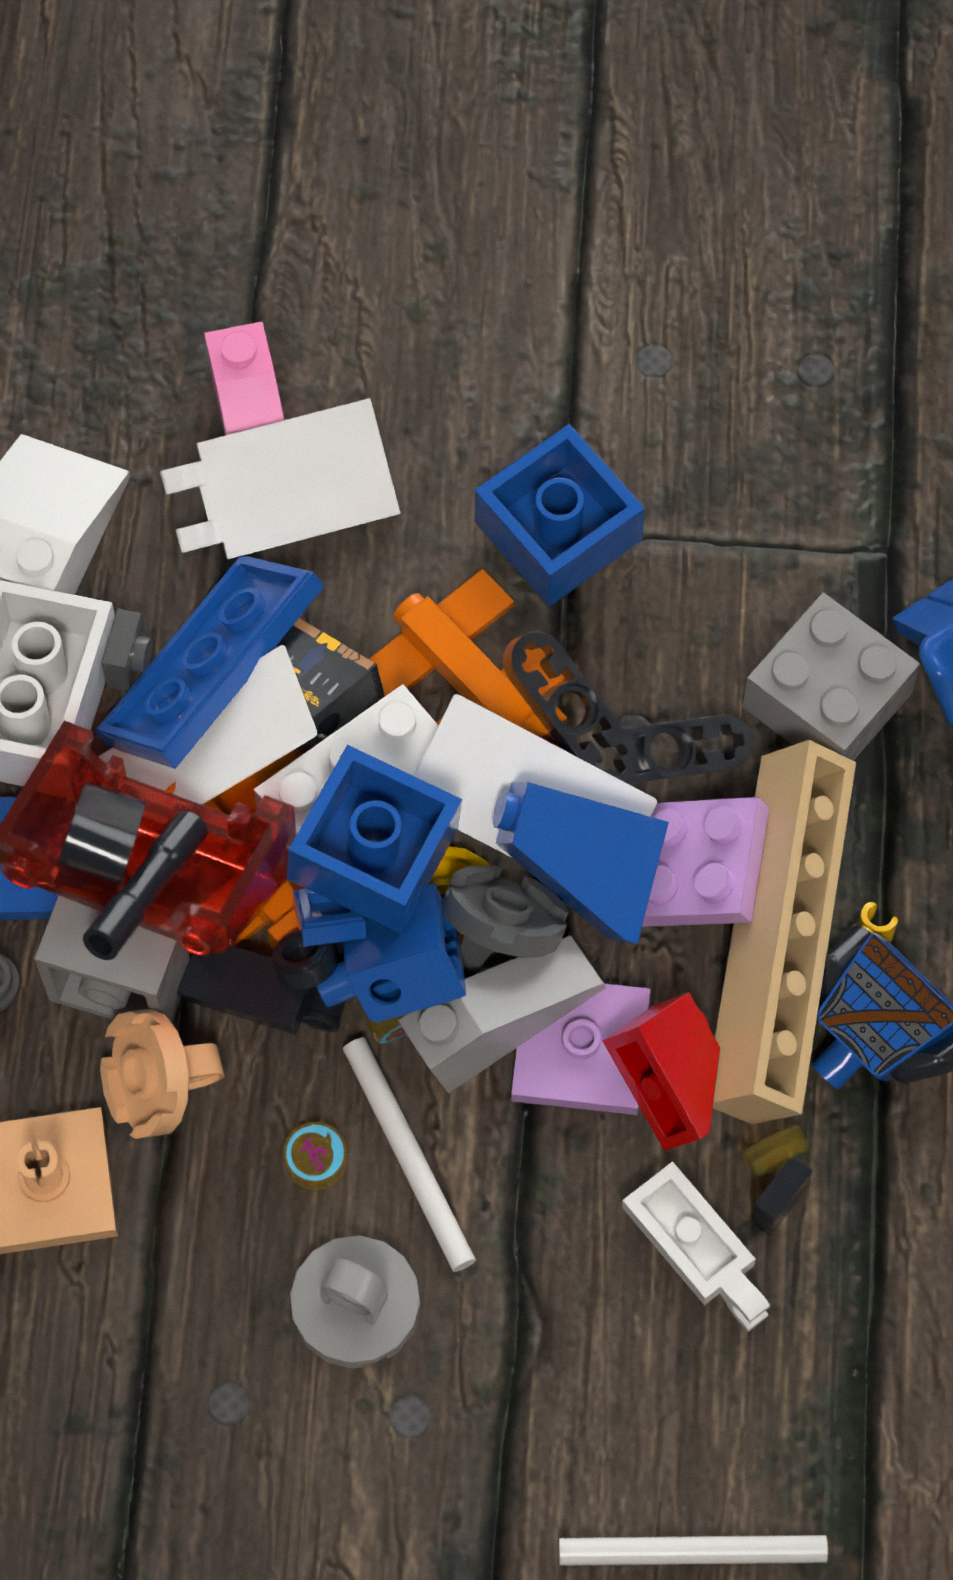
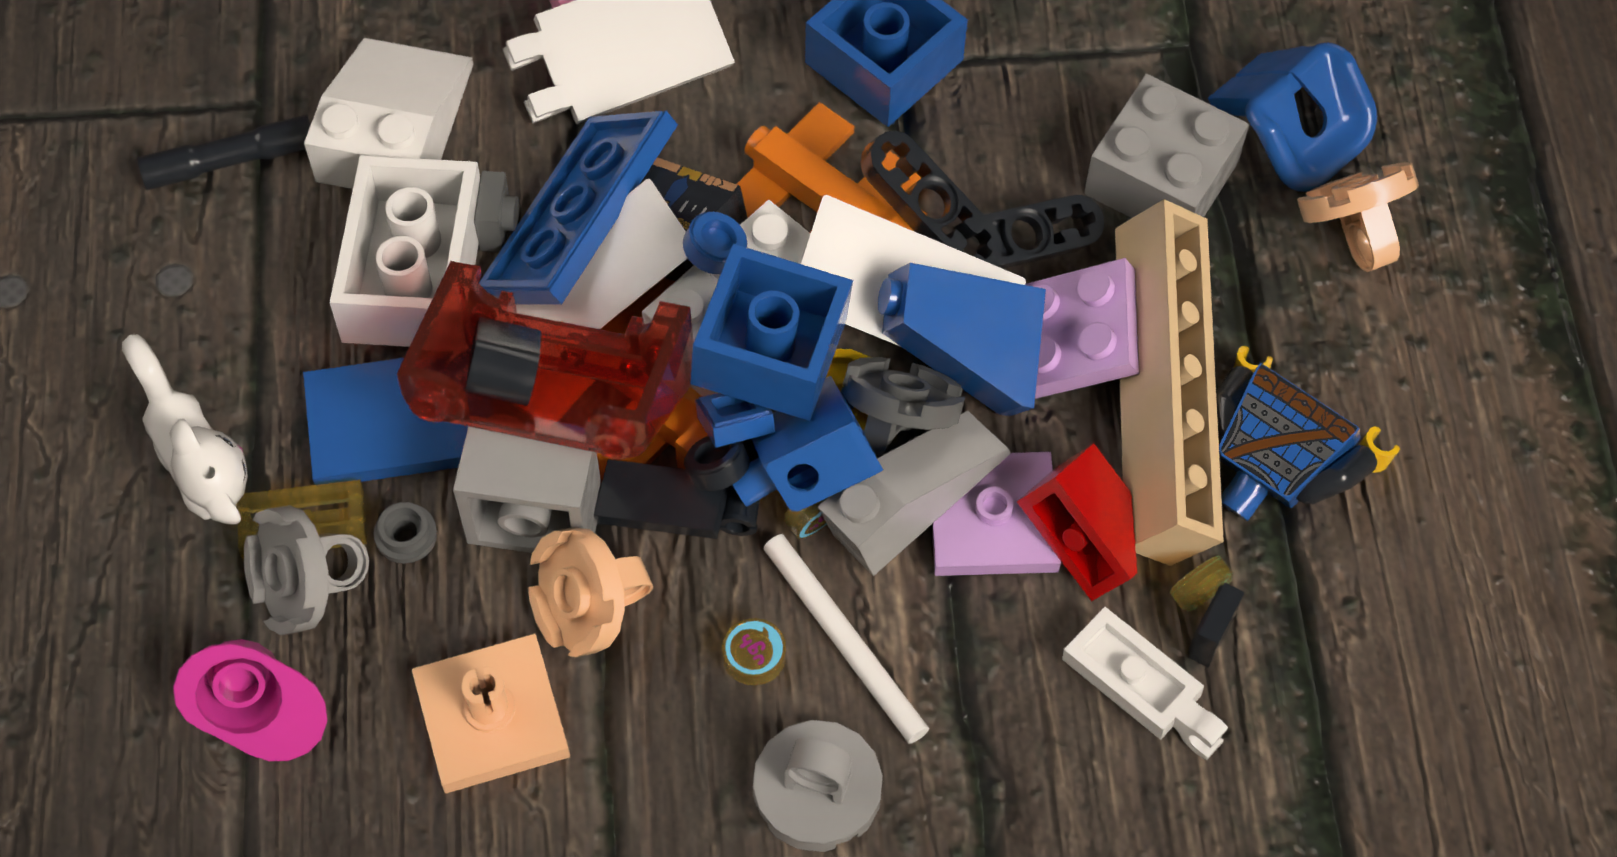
camera: 10 degrees left, 5 degrees down
(127, 909) = (541, 424): black piece -> none
(333, 726) = (711, 239): none -> blue tile

